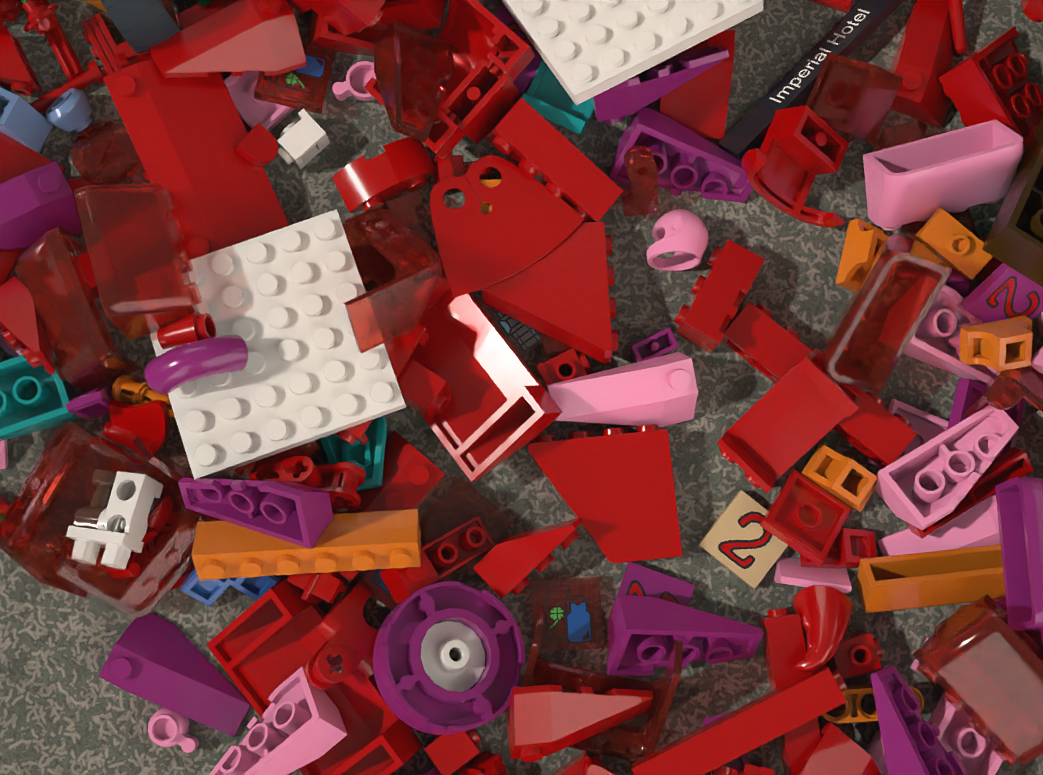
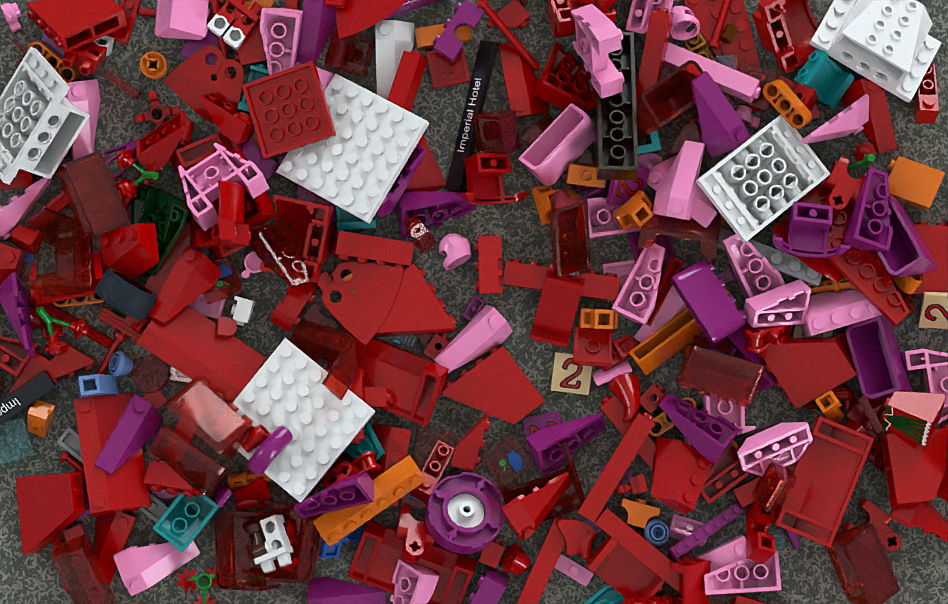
camera: 30 degrees left, 5 degrees up
(319, 586) = (385, 517): red piece -> none

